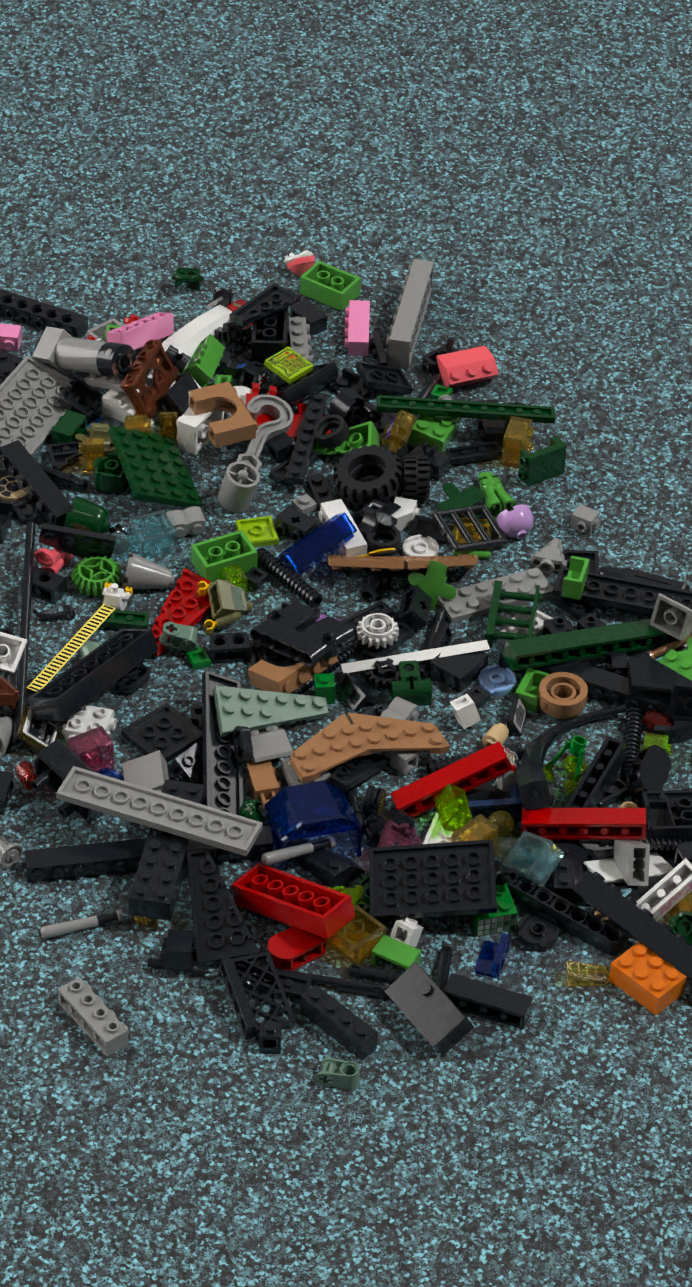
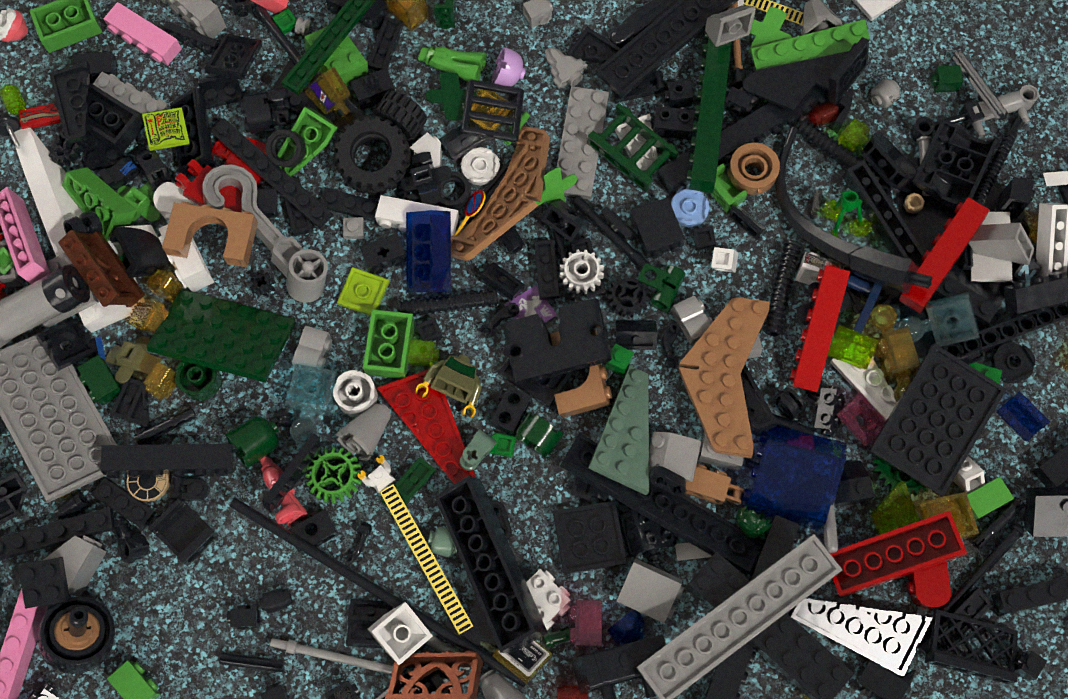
camera: 55 degrees left, 30 degrees up
(171, 554) = (347, 384): none -> white brick
(214, 475) = (261, 279): none -> black gear
(221, 661) = (538, 433): none -> dark green brick
(245, 290) = (12, 99): none -> clear neon green brick
(332, 598) = (502, 281): none -> black plate
(418, 655) = (632, 256): white sticker -> none
(444, 966) = (1016, 467): black axle -> none
(496, 733) = (765, 253): tan brick -> none
(576, 578) = (629, 68): bright green panel -> none

